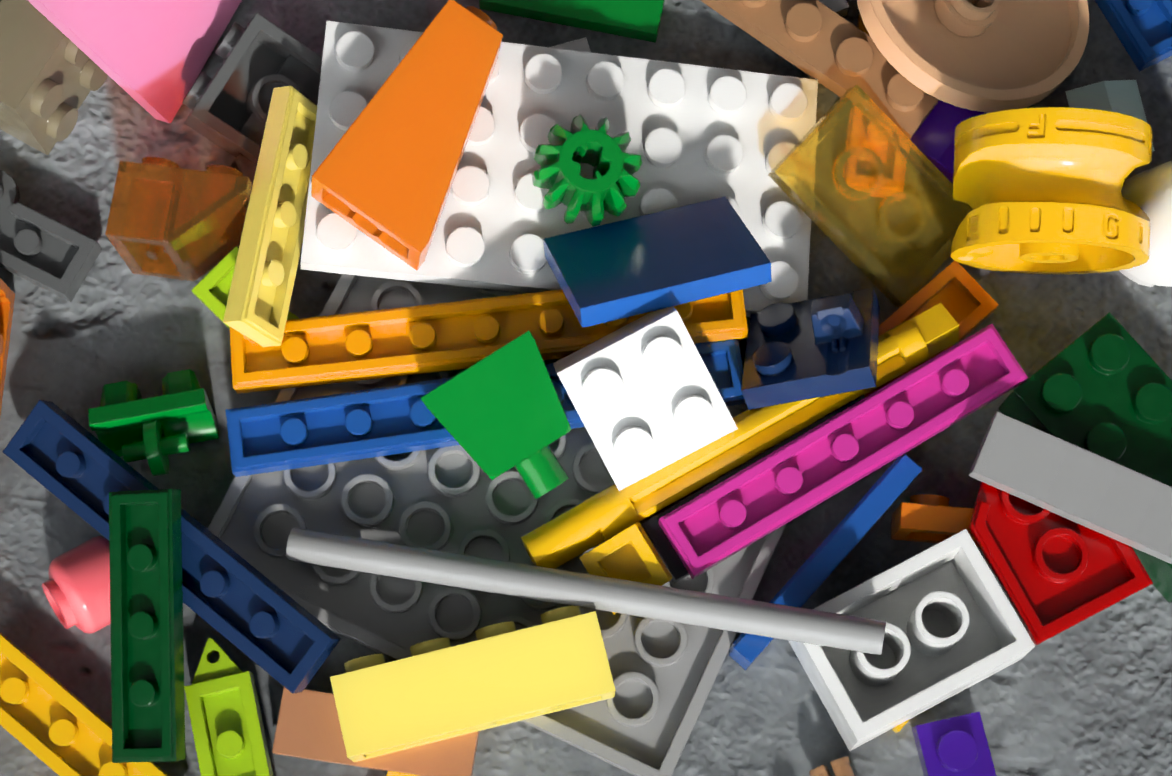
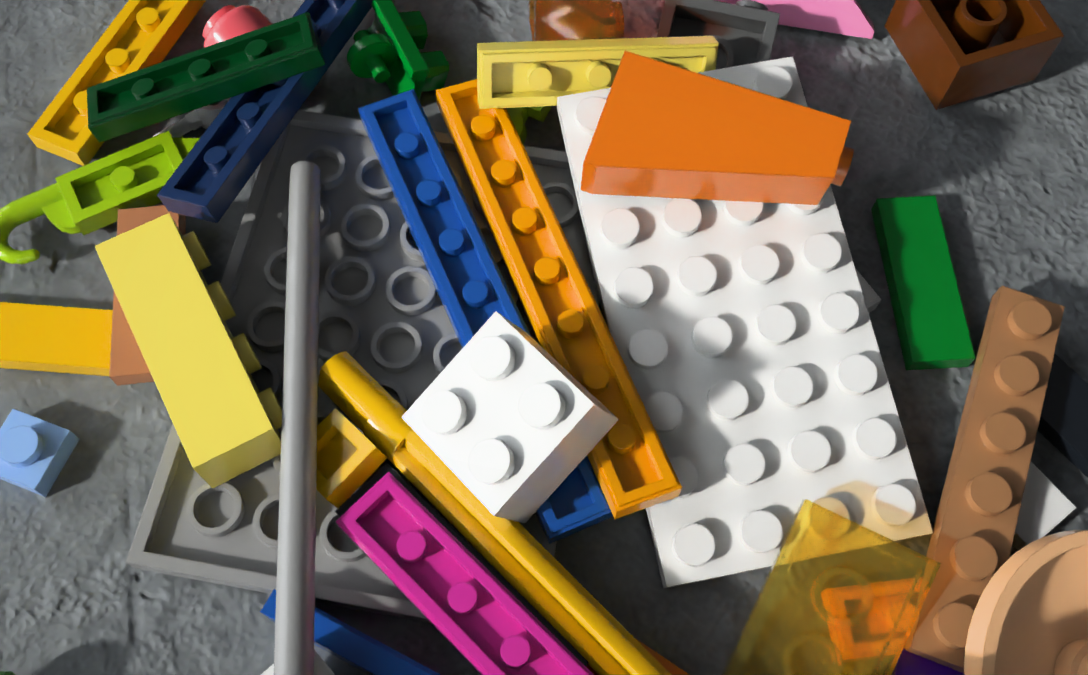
camera: 75 degrees right, 10 degrees down
(506, 414) = (452, 289): green torso -> none
(611, 173) = (749, 289): green gear -> none
(656, 261) = (656, 394): blue tile -> none
(811, 349) = (621, 593): dark blue hinge -> none

